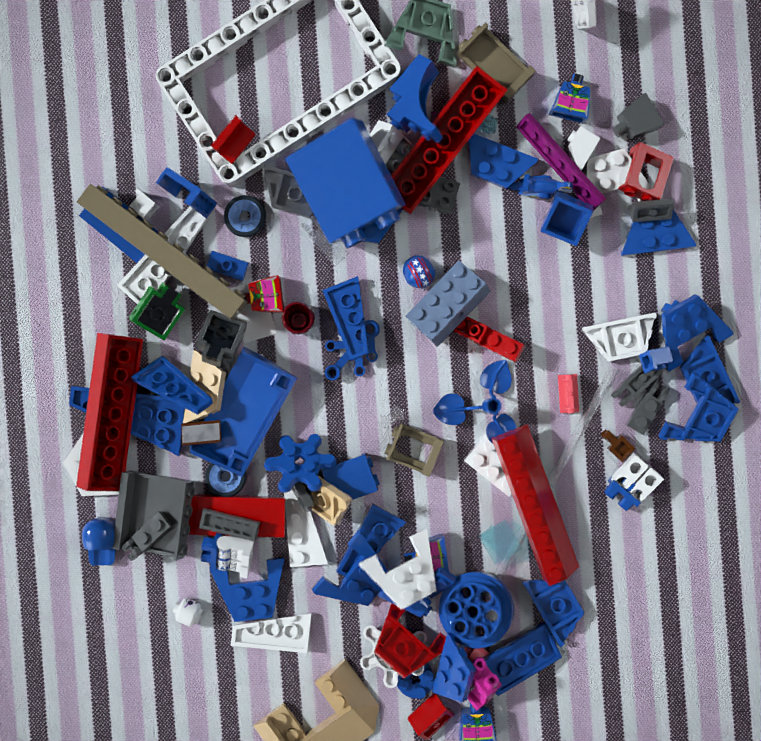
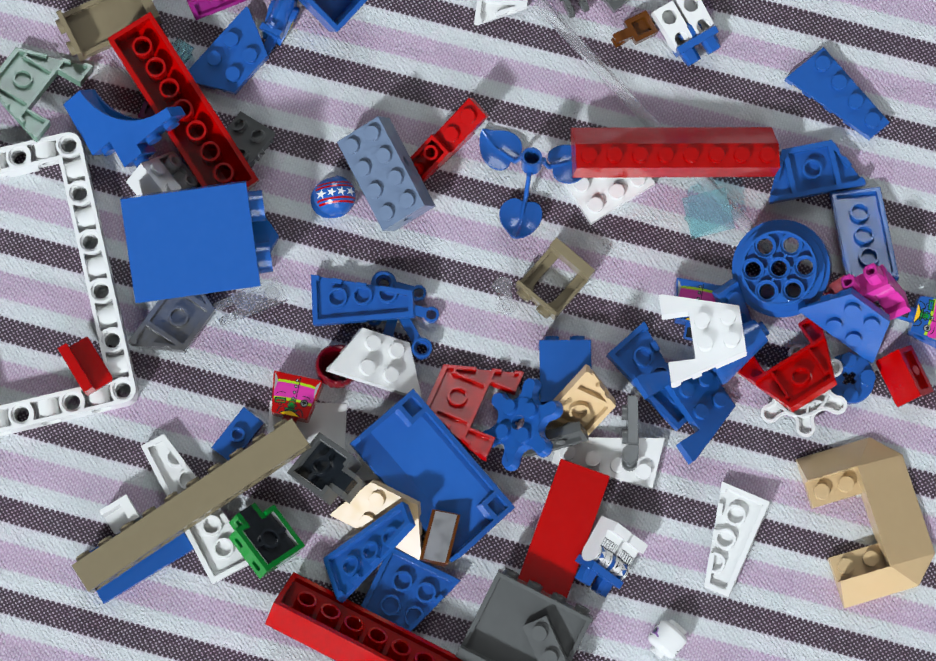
camera: 75 degrees left, 10 degrees down
(197, 198) = (145, 430): blue panel -> none
(220, 488) = (520, 540): wheel -> none
(229, 524) = (570, 537): dark grey plate -> none
(233, 211) = (182, 375): wheel -> none
(252, 598) = (677, 552): blue wing -> none
(305, 410) = (459, 396): none -> red wing
(310, 346) = (378, 362): none -> white wing
(319, 541) = (630, 435): none -> hinge
(568, 393) = (550, 68): coral hinge -> none
(621, 604) = (838, 94): none -> blue wing

